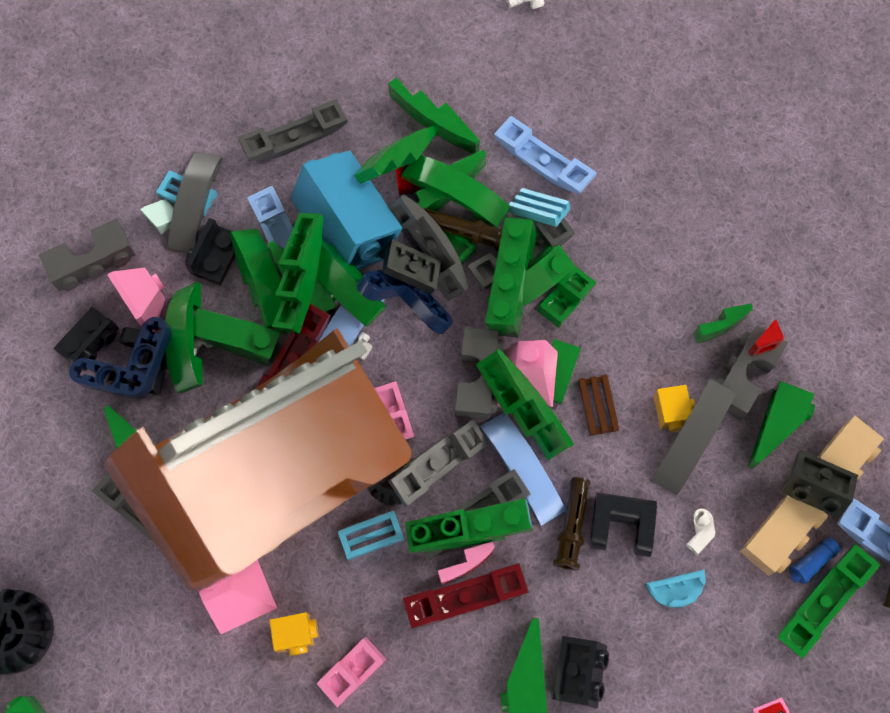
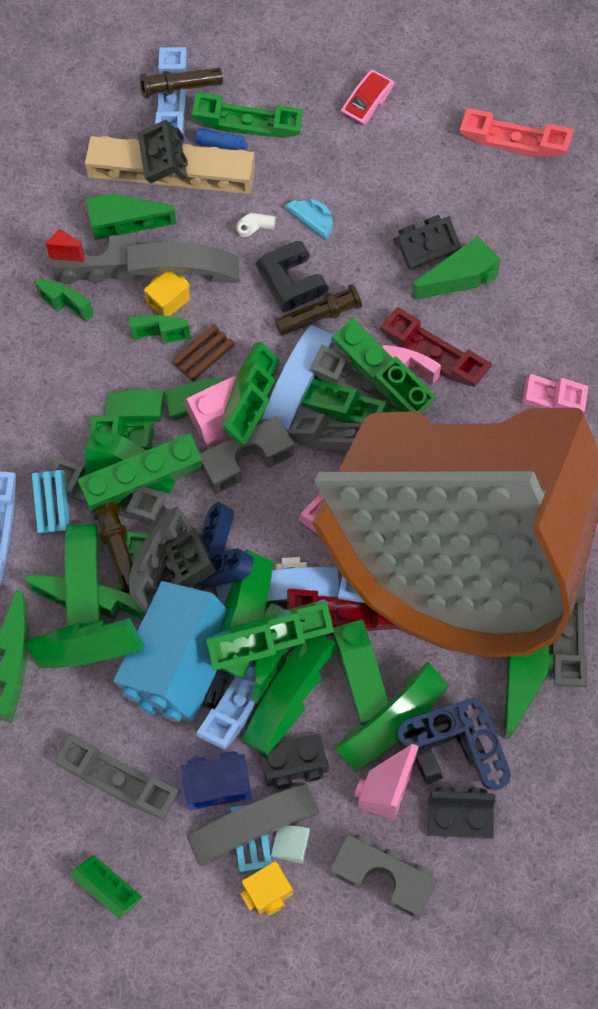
camera: 125 degrees left, 5 degrees down
(142, 177) = (266, 890): none -> yellow brick
(227, 84) = (106, 886): none -> green plate
(235, 184) = (216, 780): none -> clear blue brick
(456, 488) = (342, 402): none -> green slope
(583, 319) = (135, 404): none -> green slope
(640, 383) = (170, 328): none -> green slope

